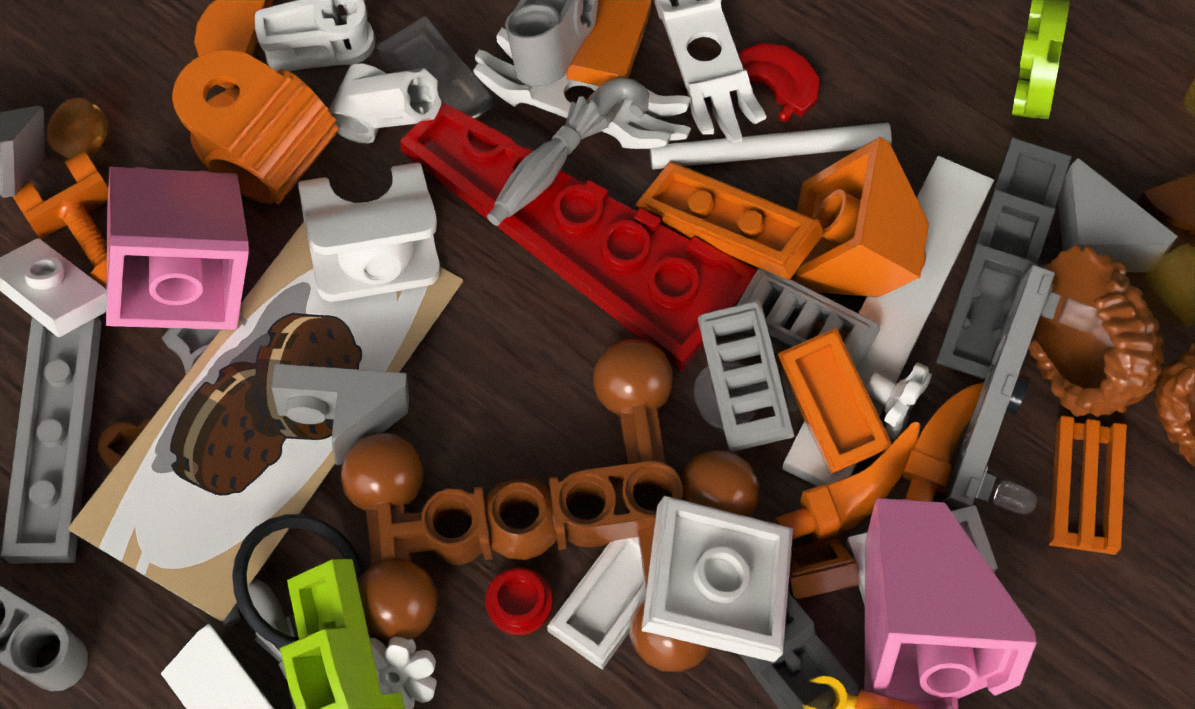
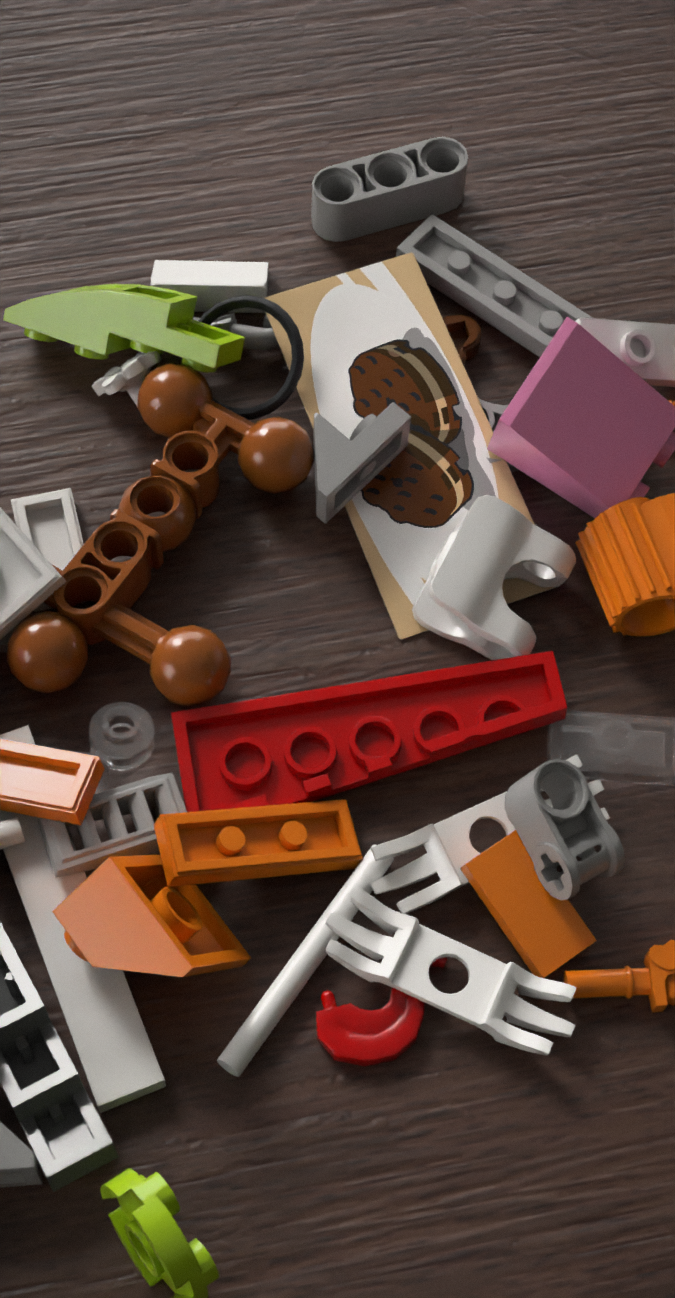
camera: 125 degrees right, 5 degrees down
(379, 100) = (609, 665): white piece -> none
(519, 601) = (103, 482): red plate -> none
(543, 164) = (447, 794): light grey piece -> none
(734, 324) = (131, 760): light grey slope -> none

